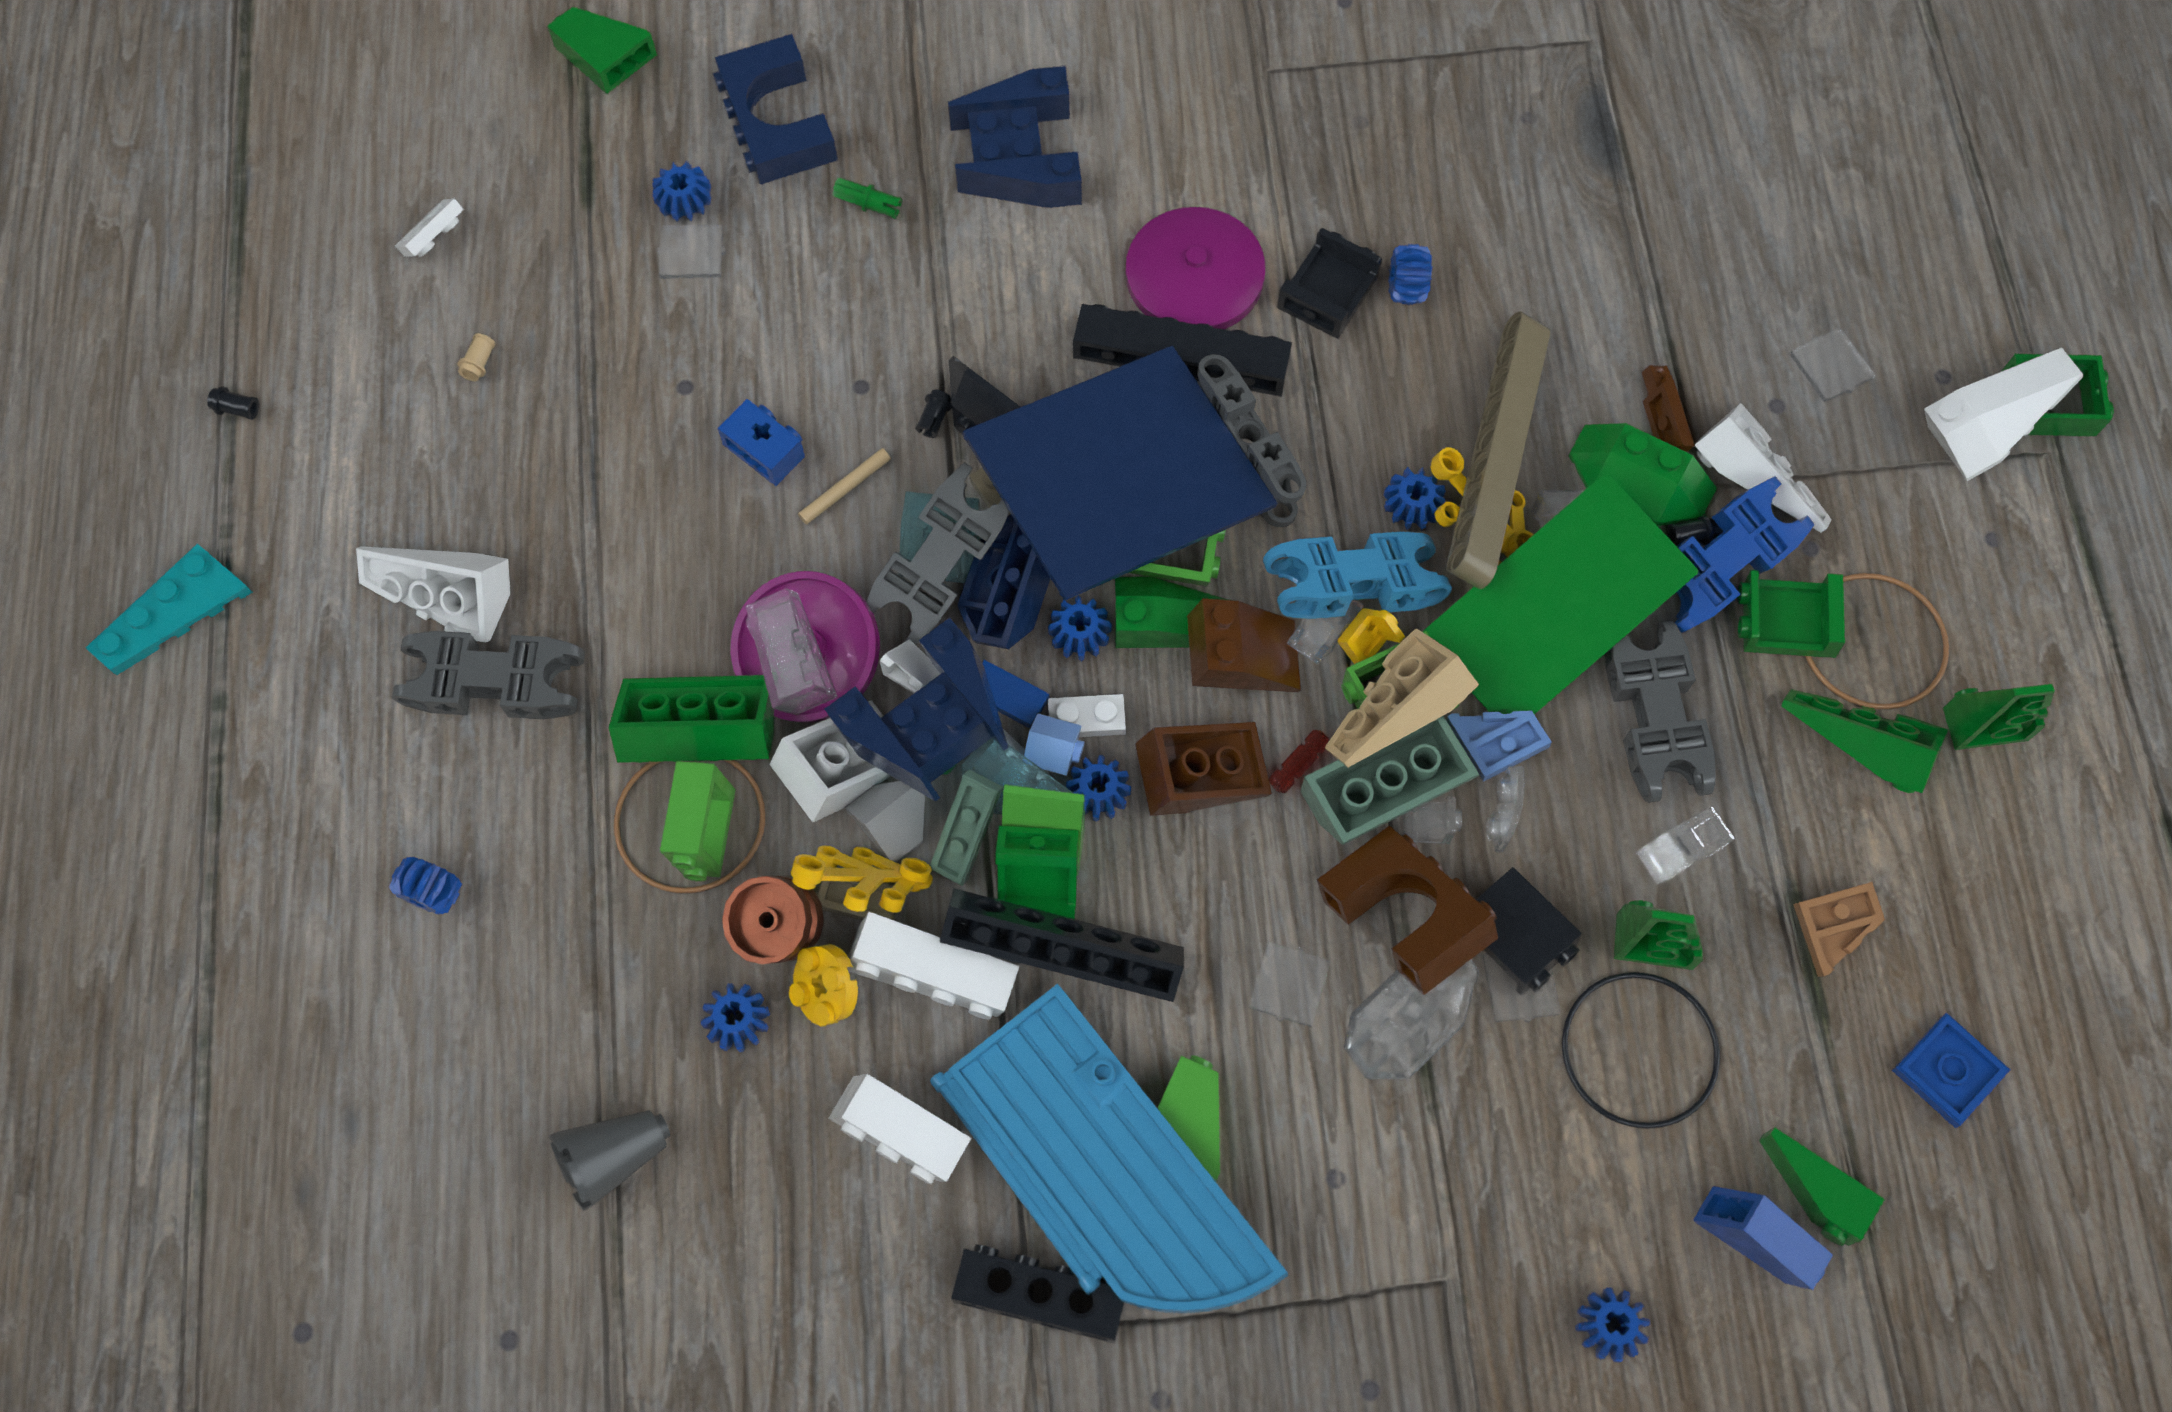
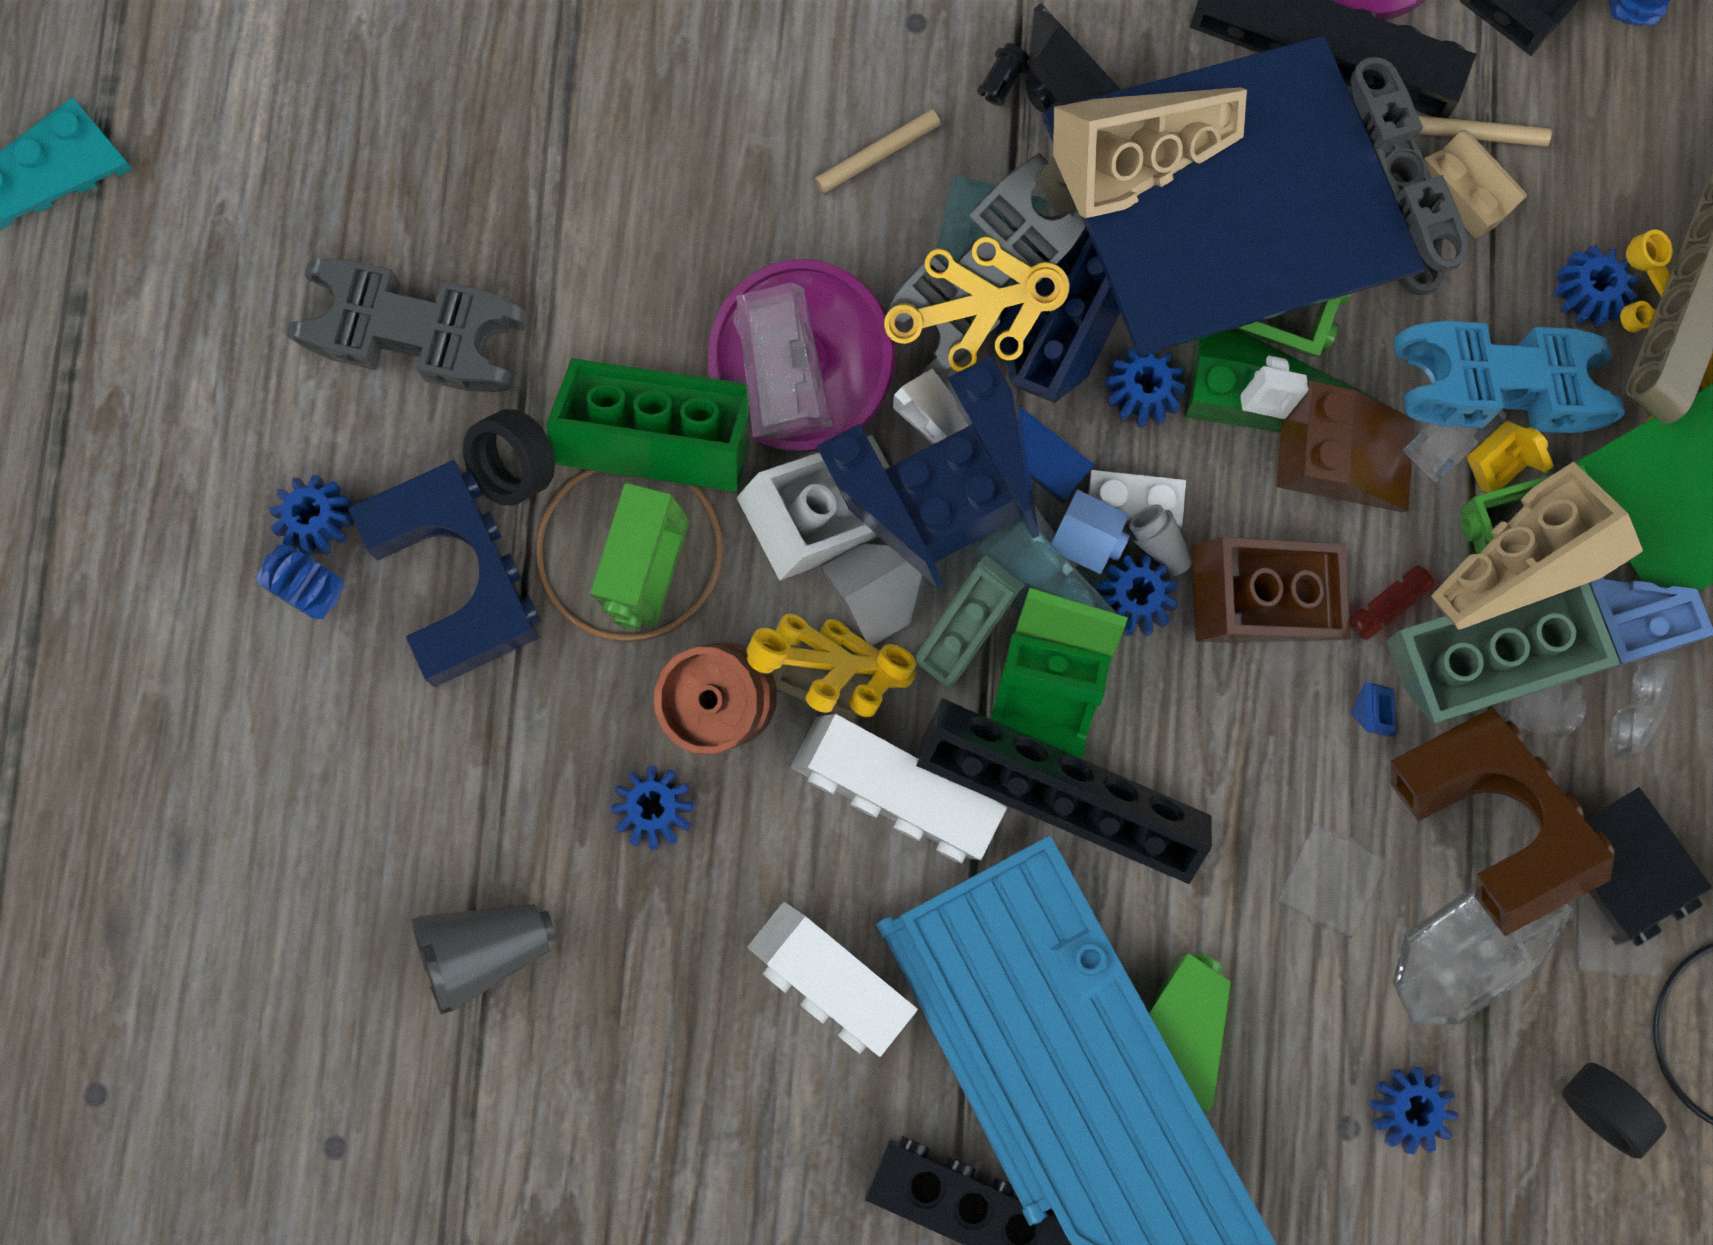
camera: 10 degrees right, 10 degrees up
(420, 826) = (303, 503): none -> blue gear
(450, 587) = (373, 203): white wedge -> none
(563, 769) = (529, 444): none -> black tyre
(586, 890) = (495, 616): none -> dark blue arch
(762, 441) = (789, 100): blue brick -> none
(820, 969) = (769, 810): yellow plate -> none
(941, 580) = (984, 302): none -> yellow plant
(1033, 444) = (1130, 143): none -> tan wedge
(1108, 739) = (1161, 538): none -> light grey cone
(1176, 611) = (1274, 389): none -> white tile
(1301, 844) = (1376, 709): none -> blue slope
(1305, 399) = (1486, 131): none -> tan bar
(1309, 438) = (1476, 182): none -> tan bracket
(1397, 1157) = (1429, 1118): none -> blue gear
(1538, 1121) = (1614, 1110): none -> black tyre

